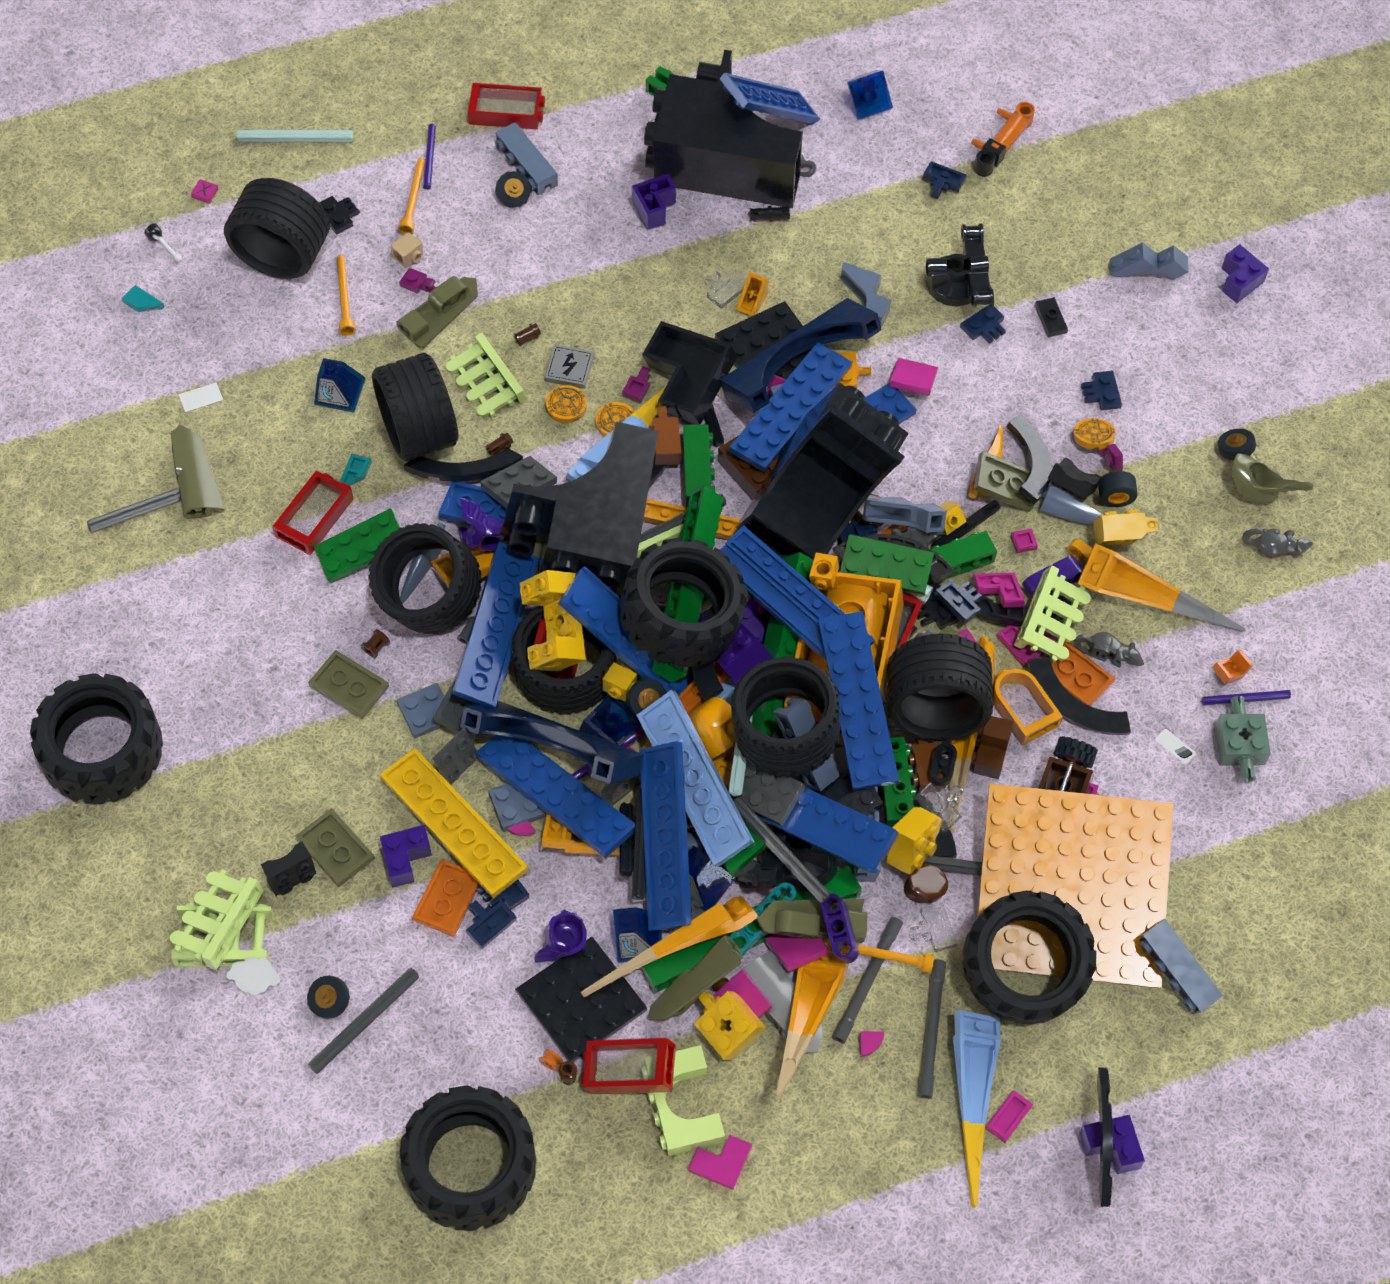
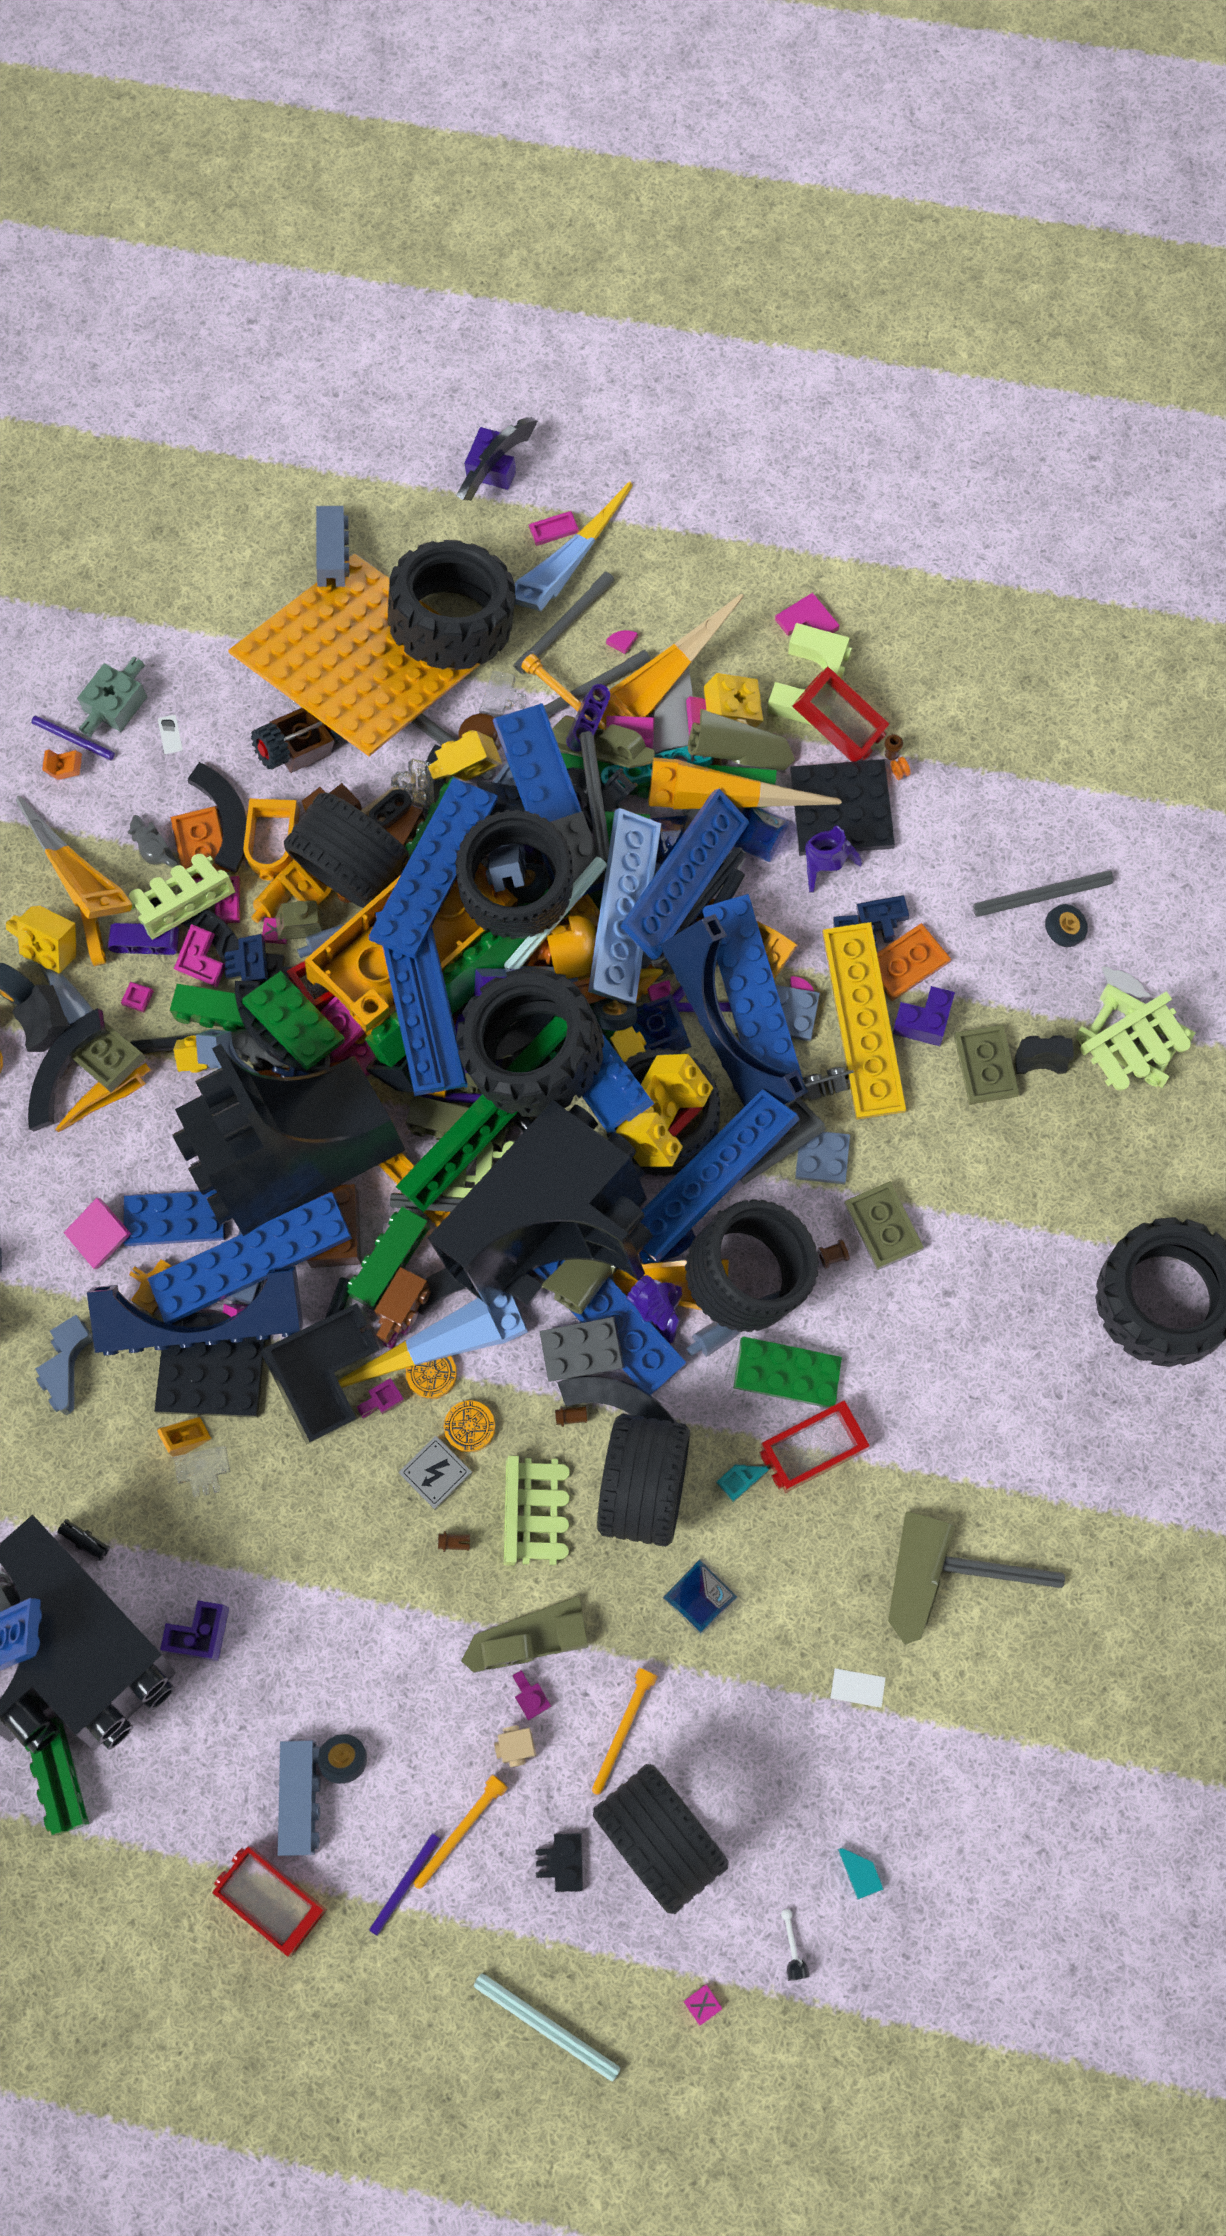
camera: 140 degrees left, 10 degrees up
(459, 1108) = (1030, 670): black tyre -> none

